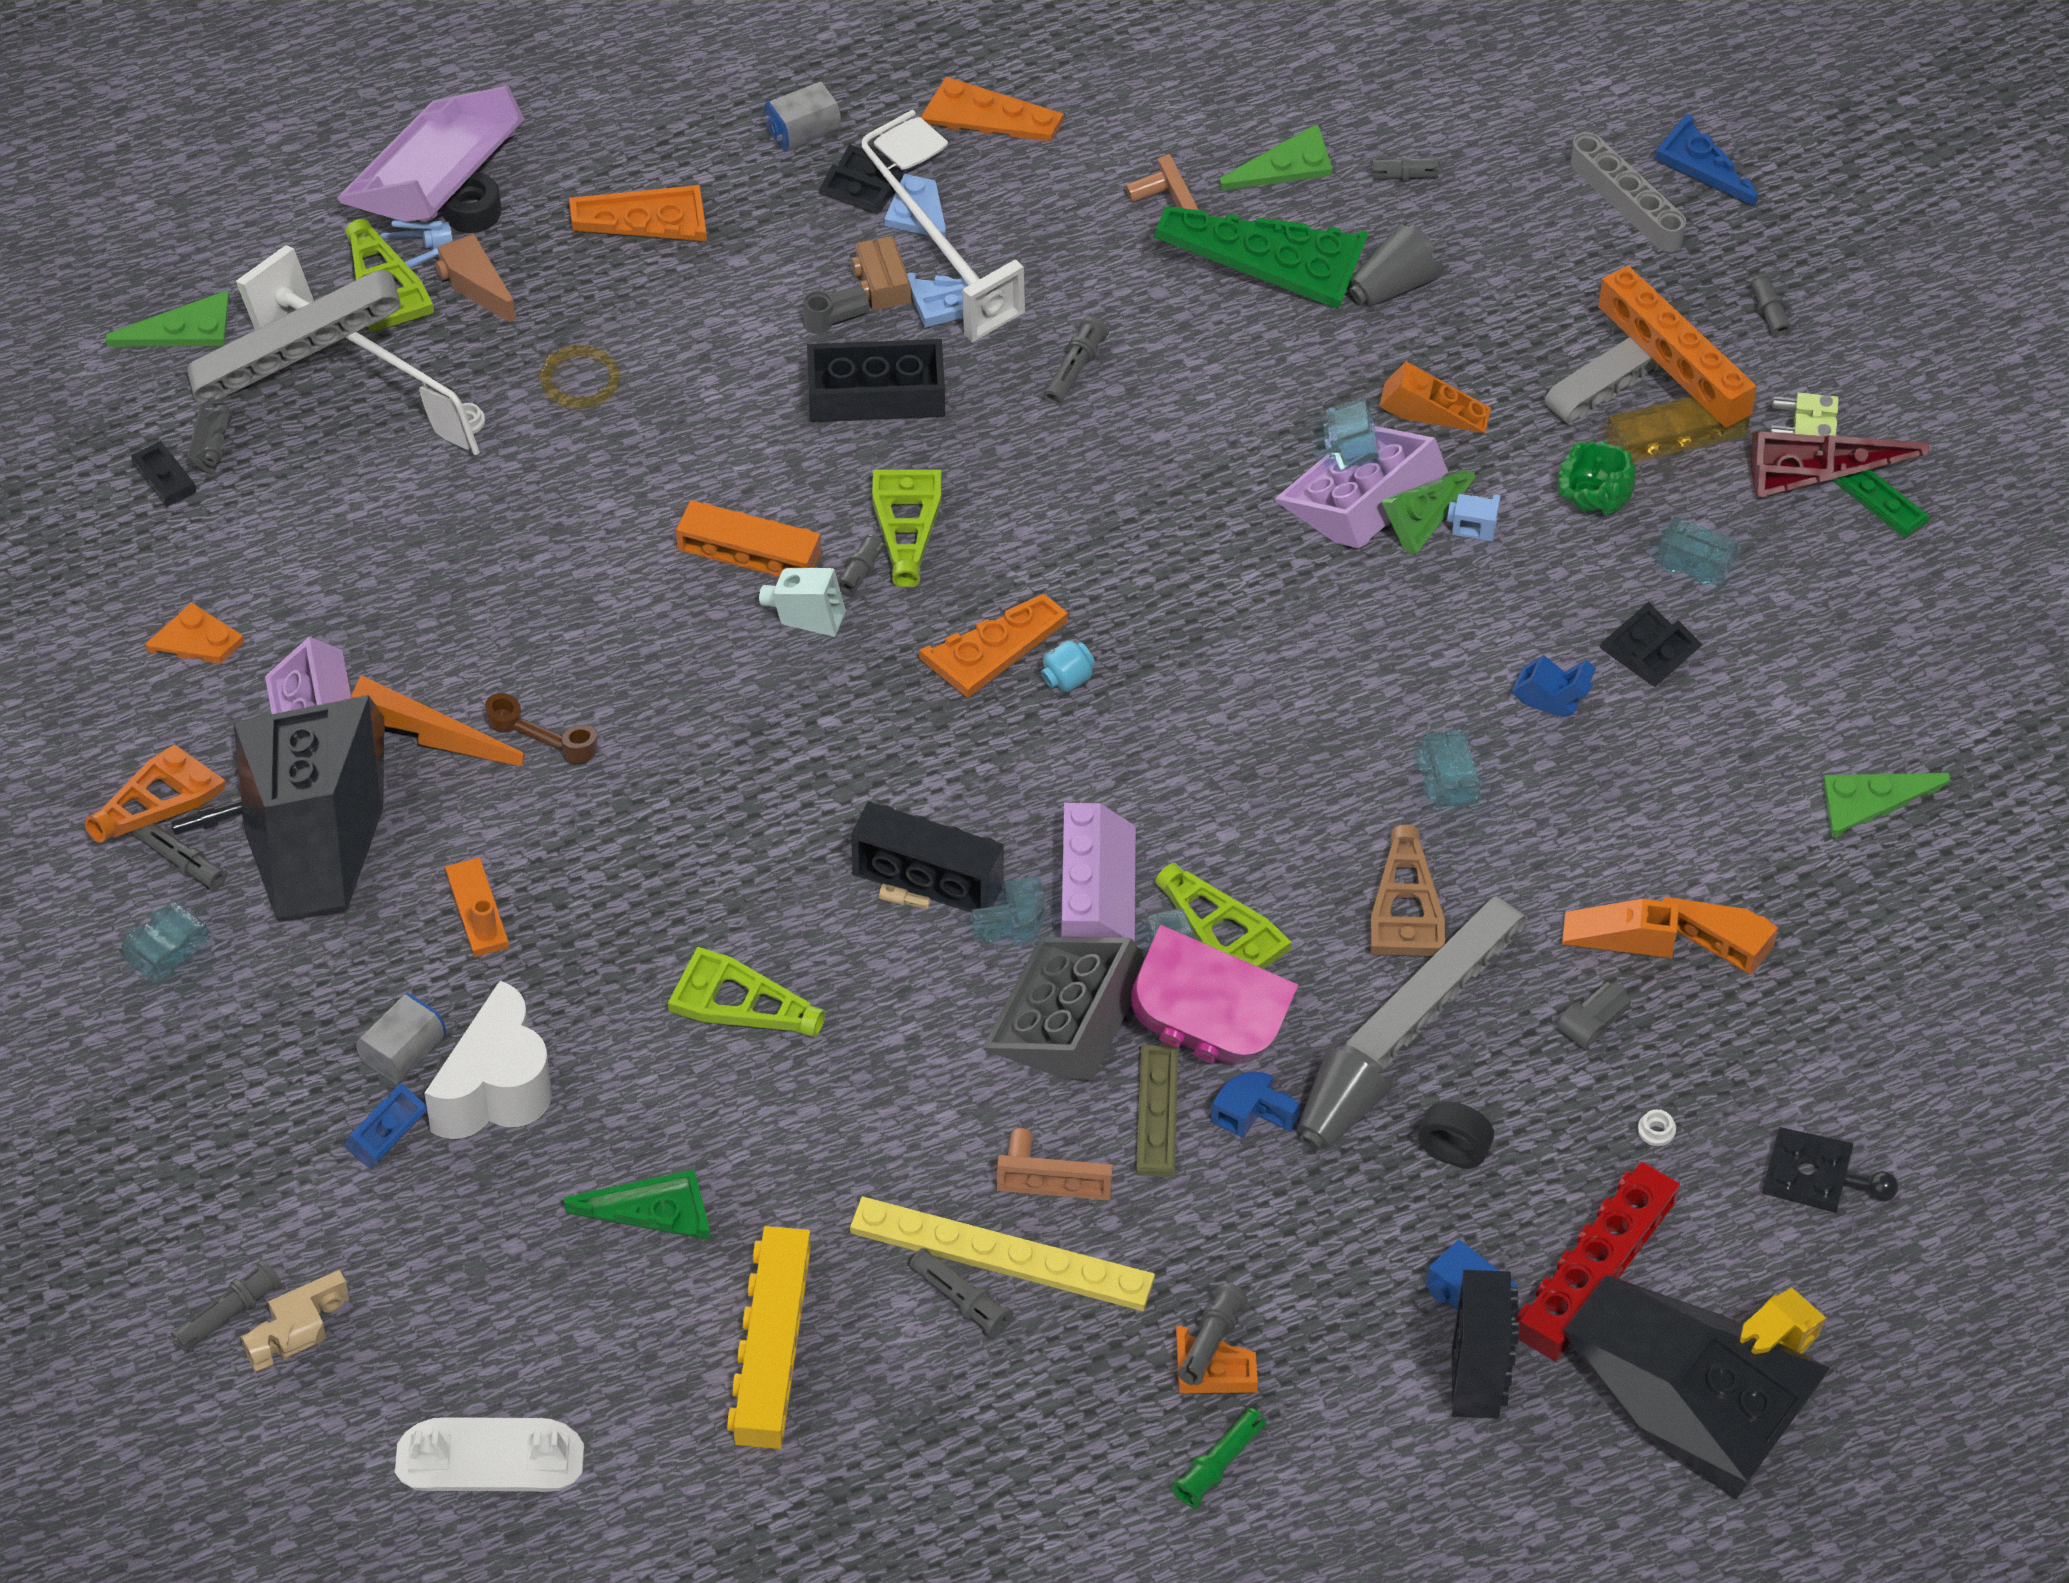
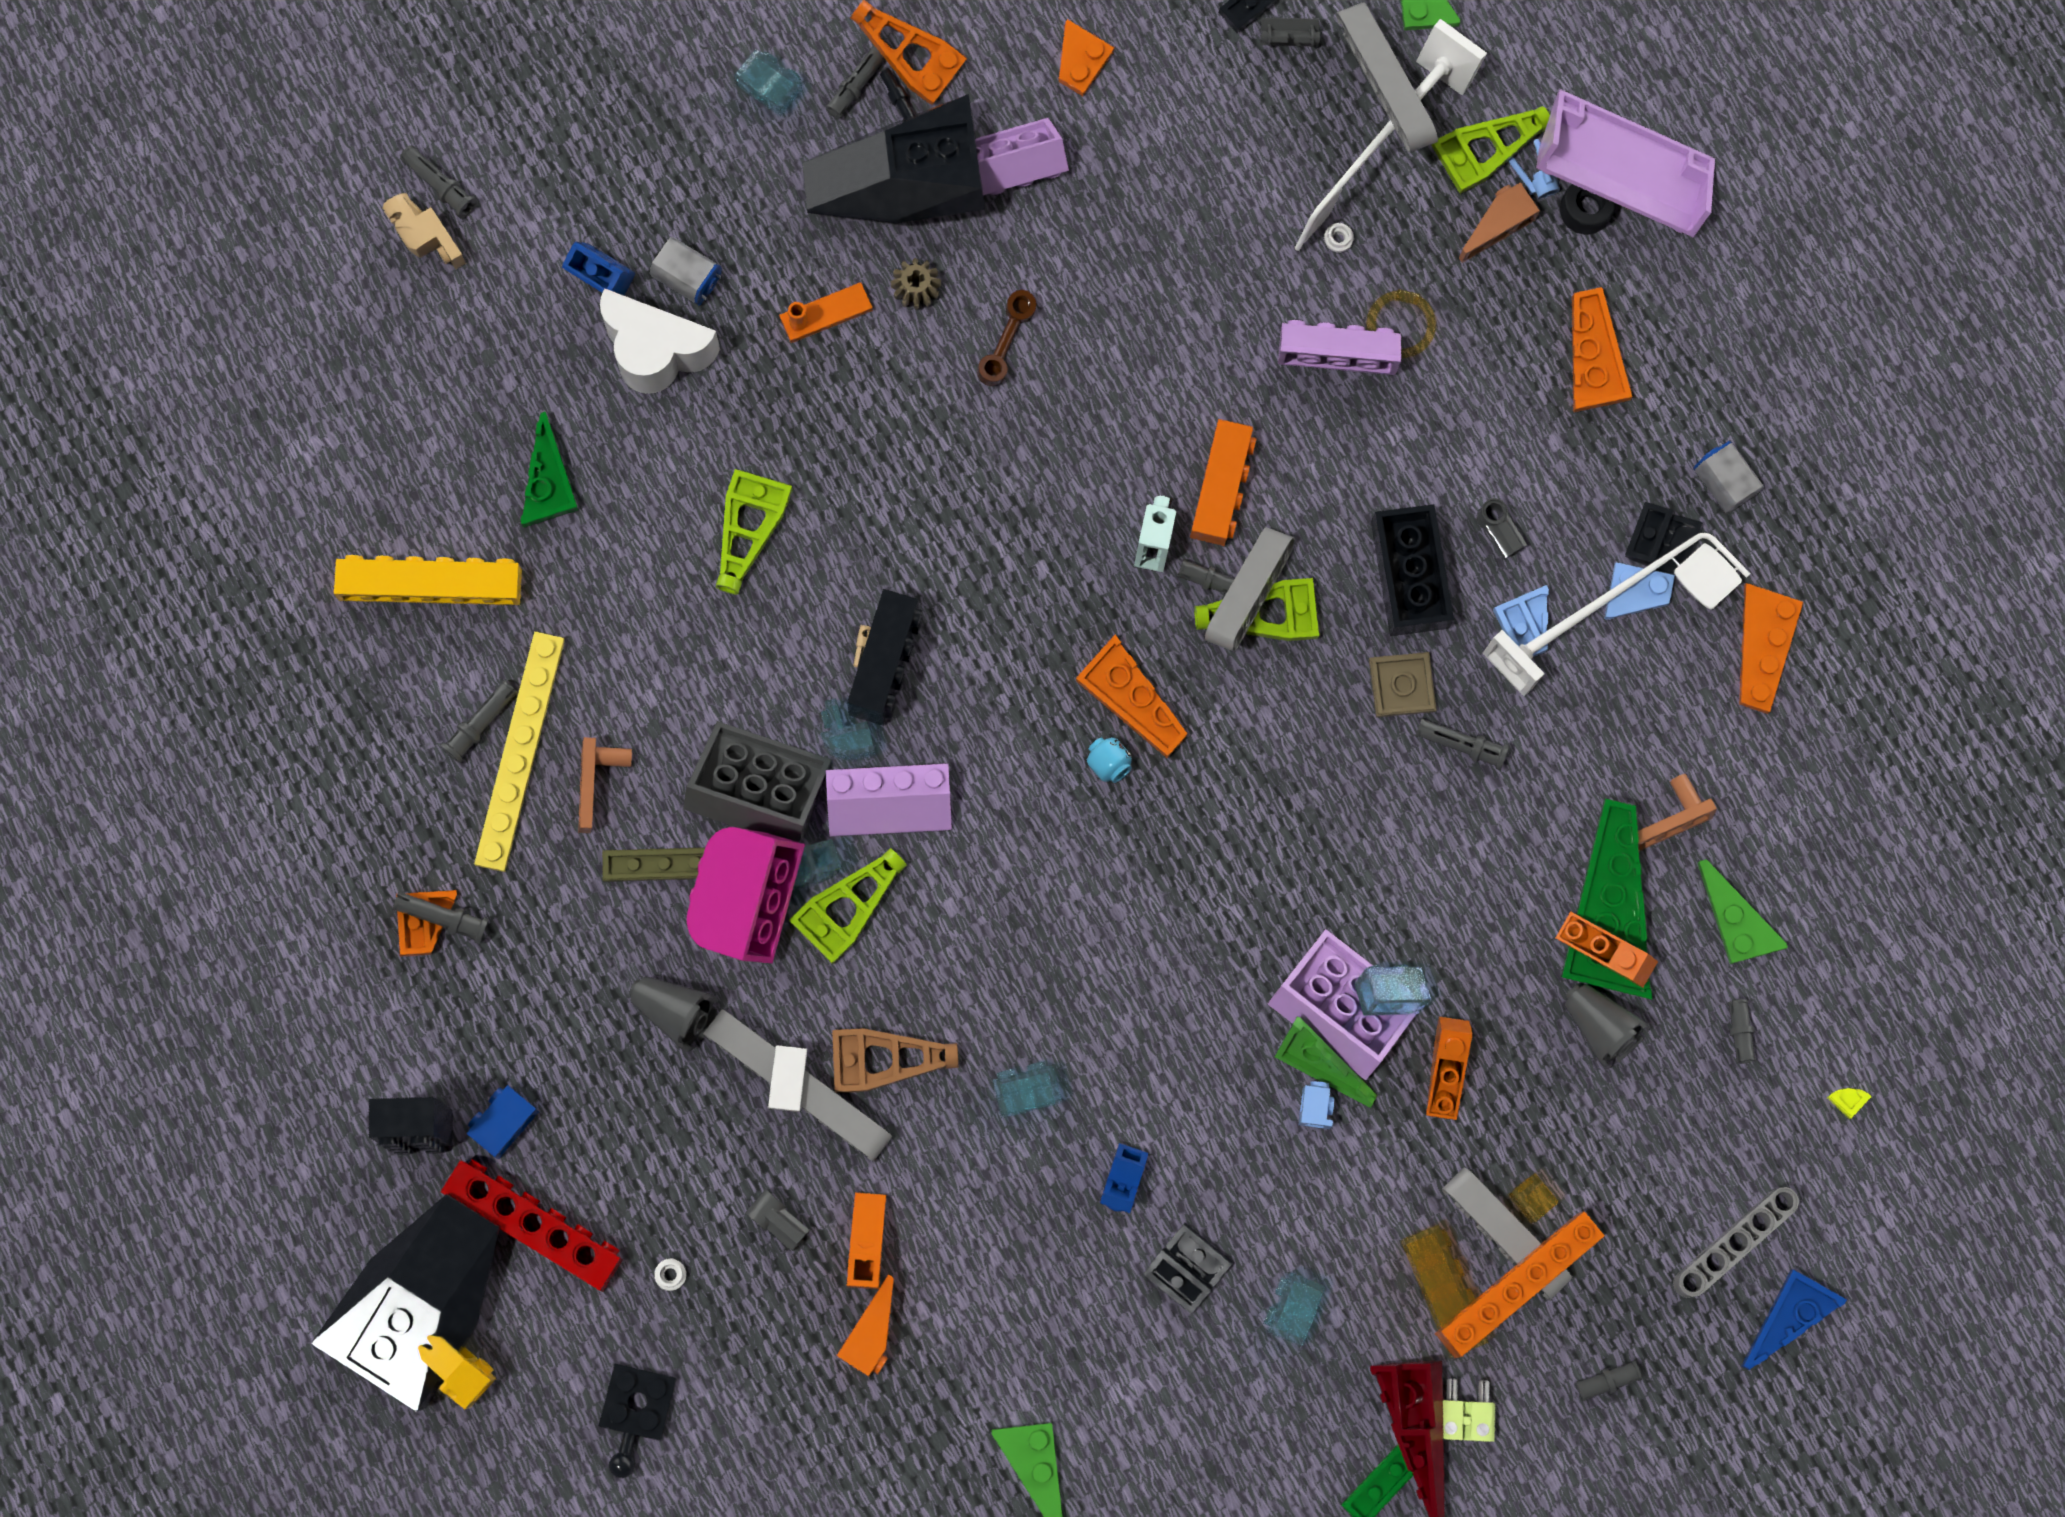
camera: 80 degrees right, 25 degrees up
(434, 727) = (1012, 222): orange wedge -> none
(457, 810) = (927, 283): none -> dark tan gear
(489, 1455) = (321, 389): white piece -> none
(605, 418) = (1340, 348): none -> lavender slope
(882, 273) = (1545, 565): medium nougat brick -> none
(884, 514) = (1249, 589): none -> light grey beam
(1002, 410) = (1402, 684): none -> dark tan tile
(1209, 1468) = (327, 922): green pin -> none
(1251, 1097) = (670, 931): blue brick -> none
(1318, 249) = (1607, 949): none -> orange slope
(1431, 980) = (787, 1078): none -> white tile
(1460, 1120) = (638, 1104): black tyre -> none
(1480, 97) = (1849, 1100): none -> neon yellow tile
(1578, 344) = (1533, 1198): none -> clear yellow panel
(1597, 477) = (1369, 1217): green hair -> none

